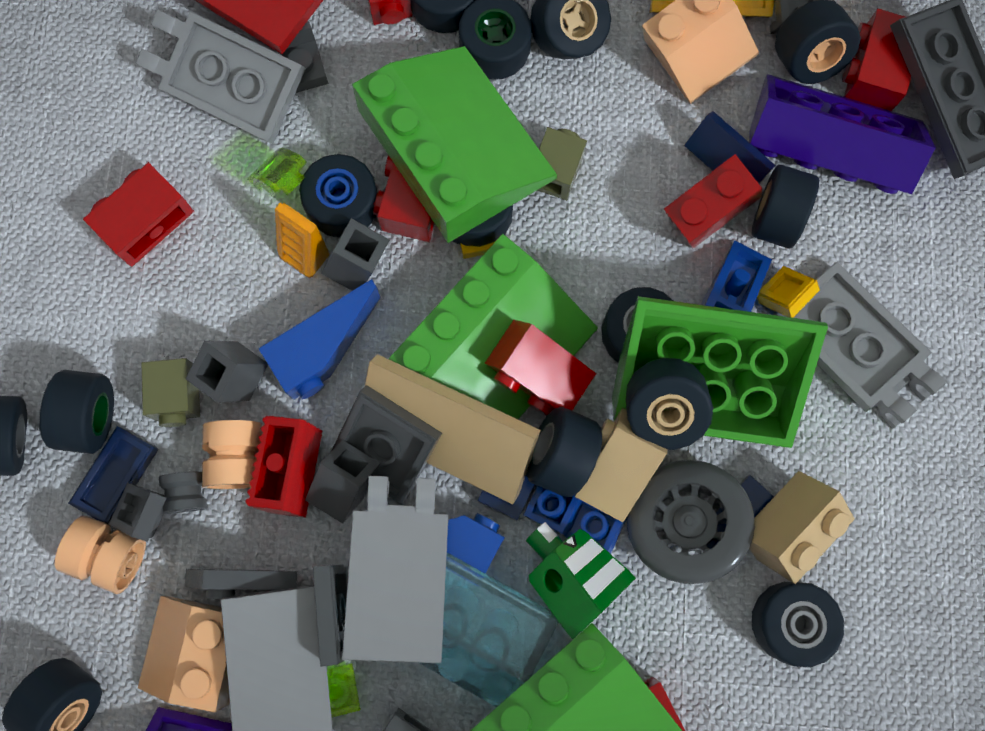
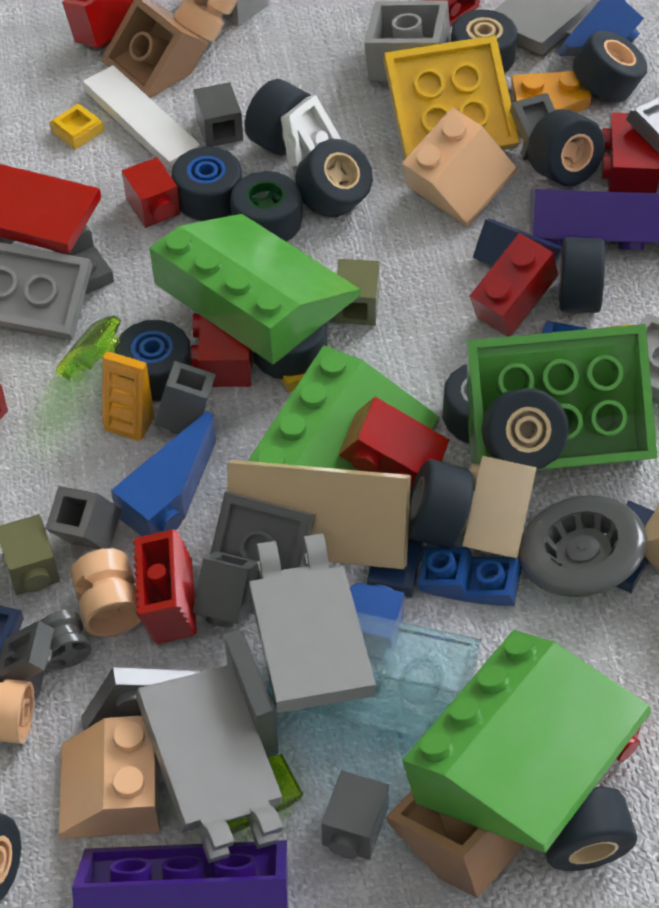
camera: 10 degrees left, 25 degrees down
(575, 577) = (483, 607): green torso -> none

